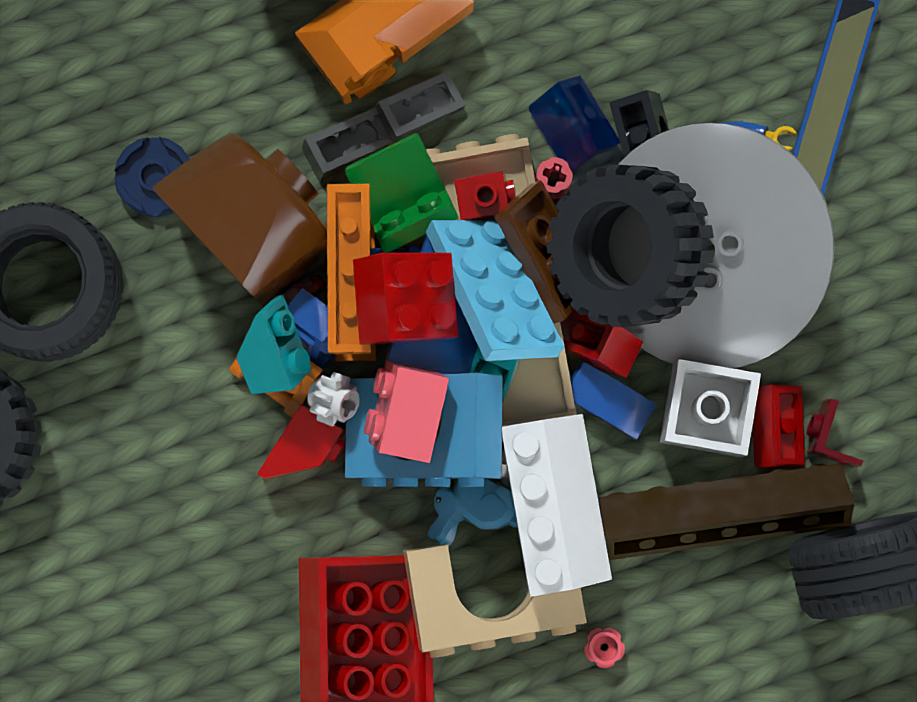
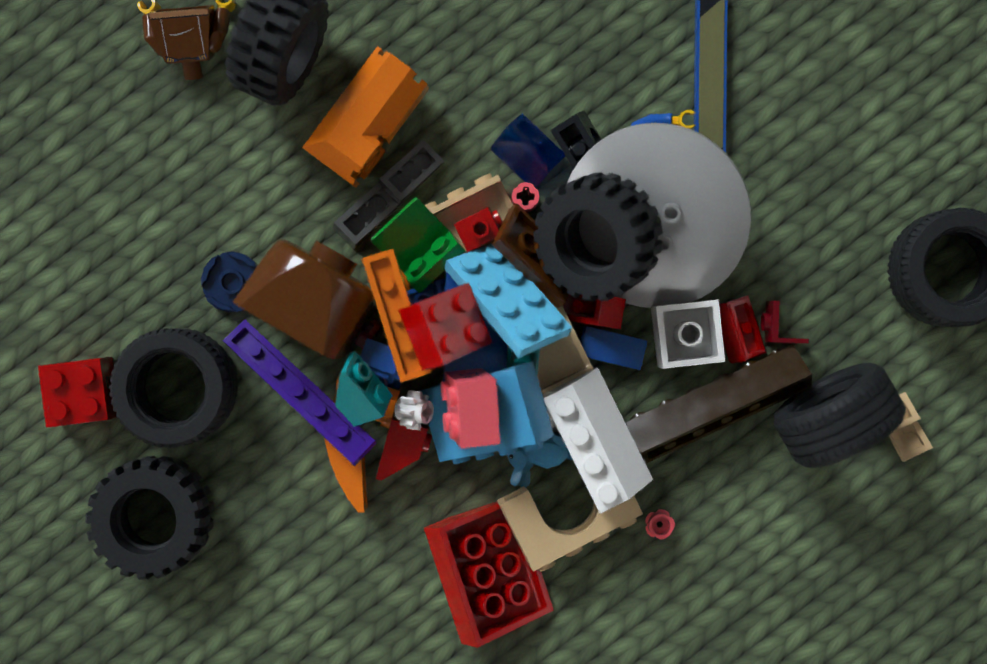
camera: 15 degrees left, 5 degrees up
(196, 335) = (299, 392): none -> dark purple plate
(226, 444) = (350, 477): none -> orange slope

